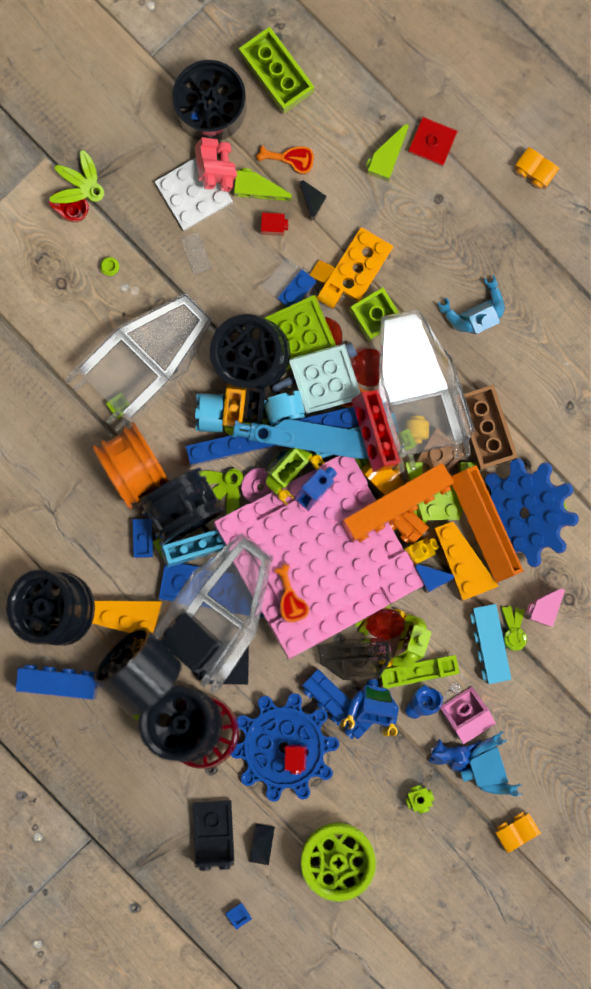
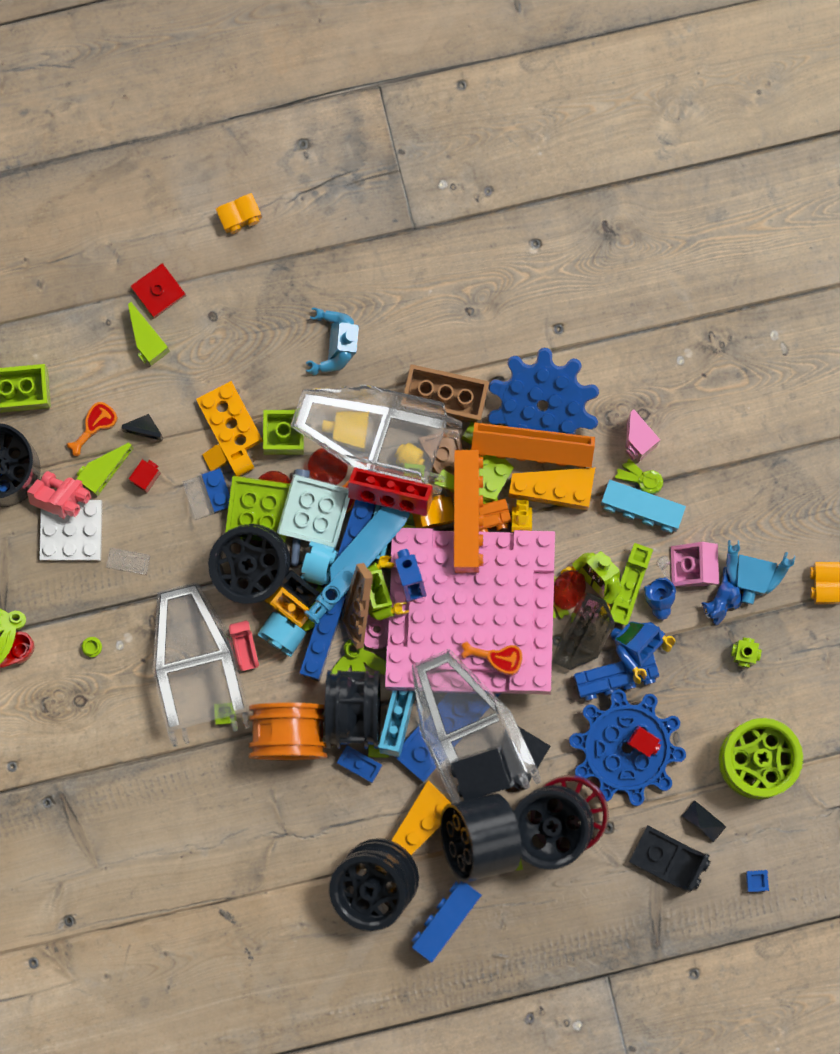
camera: 55 degrees left, 5 degrees down
(182, 388) = (244, 645): none -> coral animal
(267, 459) = (356, 605): none -> medium nougat wing
(432, 578) = (553, 520): blue slope -> none

